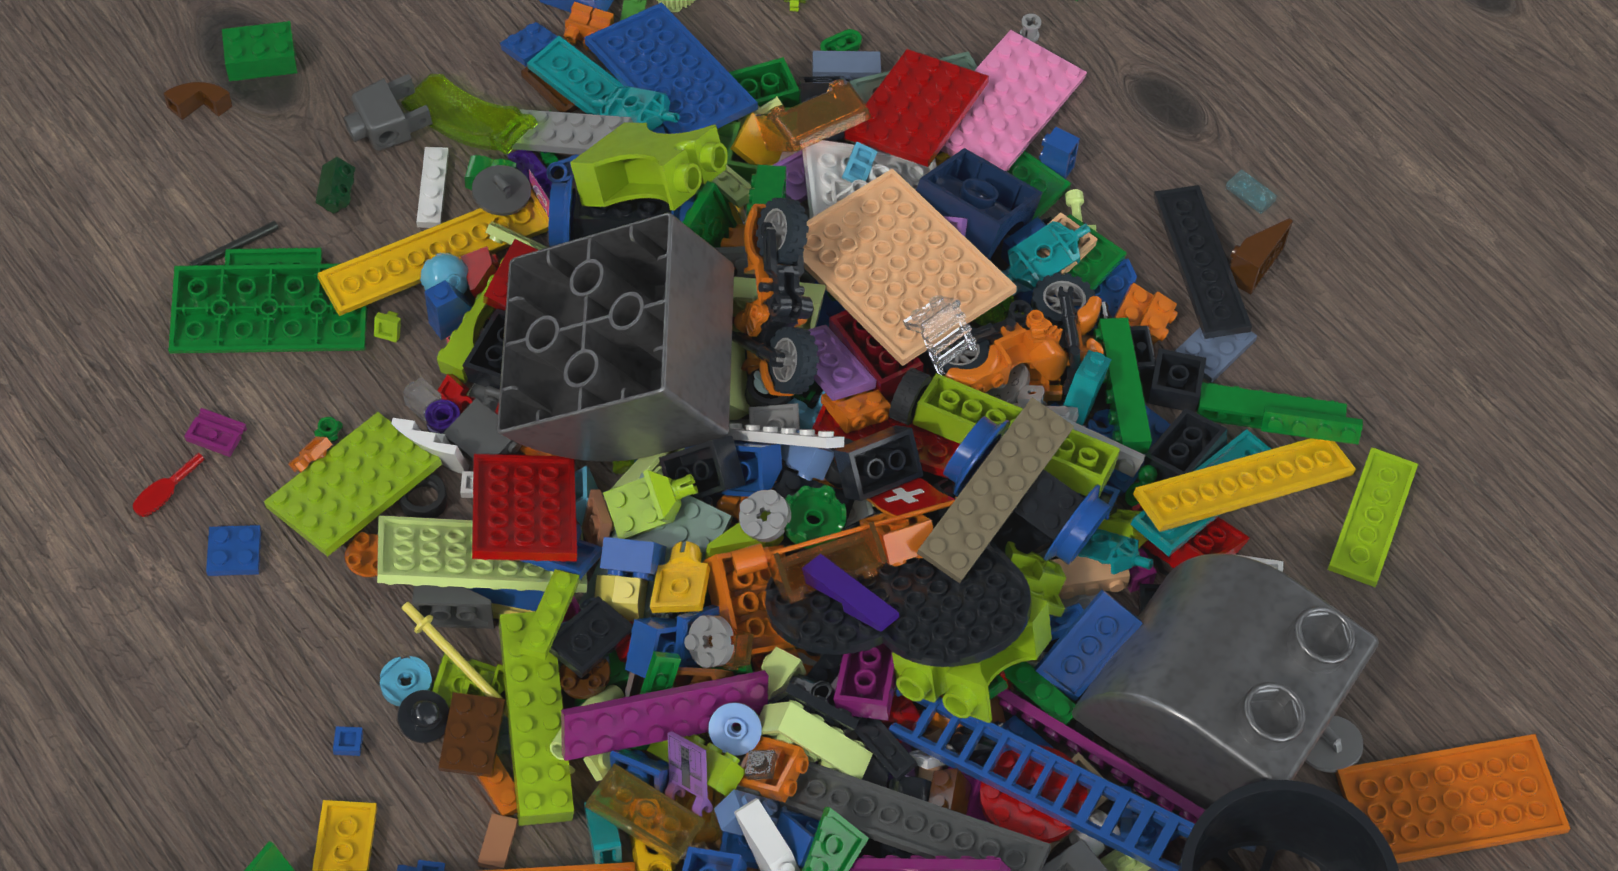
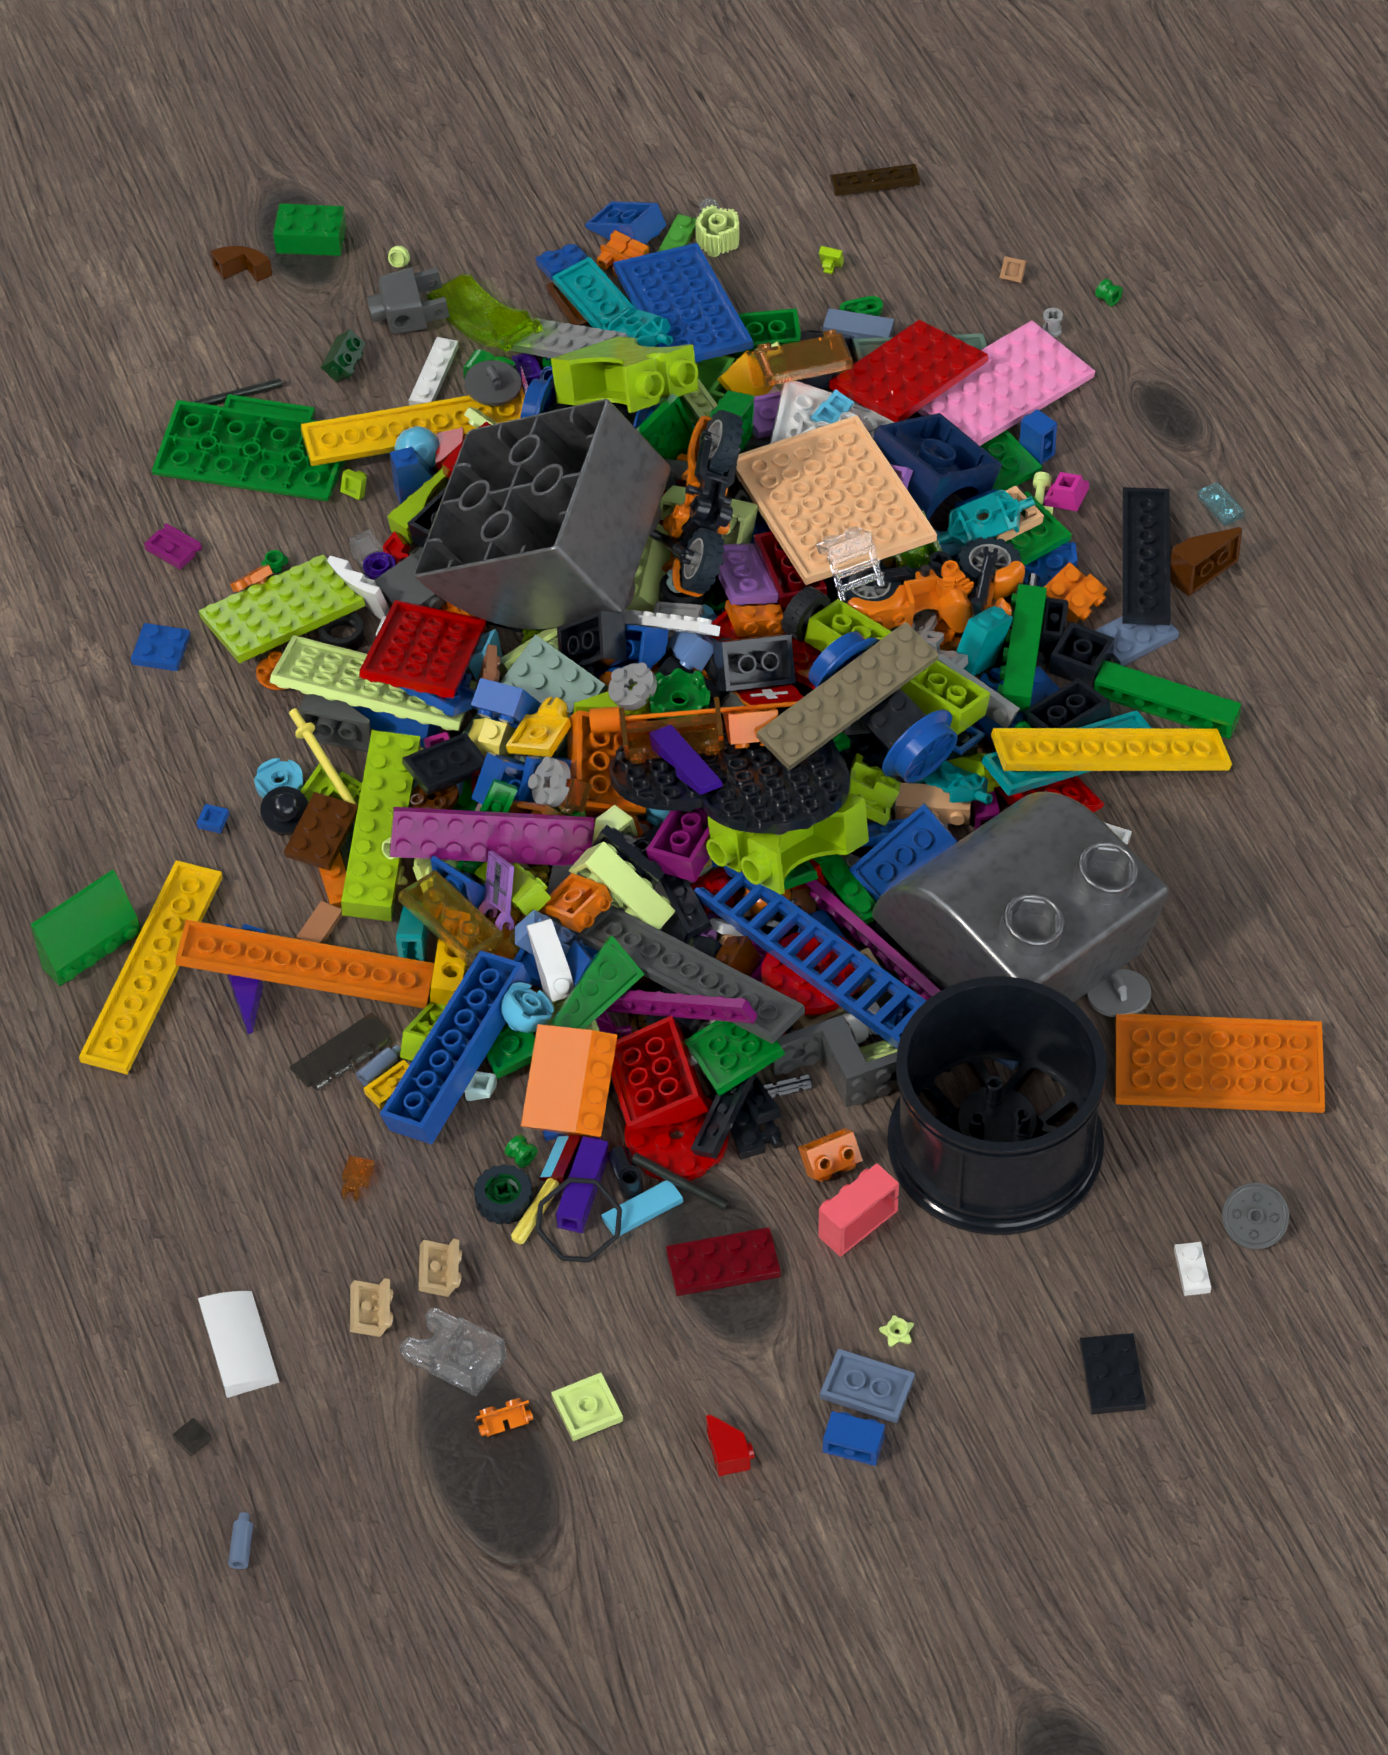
camera: 20 degrees right, 5 degrees down
(161, 491) = (111, 586): red piece -> none
(360, 65) = (398, 256): none -> yellowish green plate
(549, 614) = (414, 736): lime plate -> none
(647, 503) = (532, 659): lime plate -> none
(726, 737) = (542, 859): light blue dish -> none
(760, 764) = (565, 894): clear smoke plate -> none
(1102, 207) = (1067, 492): none -> dark pink brick
(1311, 425) = (1198, 715): green plate -> none
(1373, 517) = (1234, 808): lime plate -> none

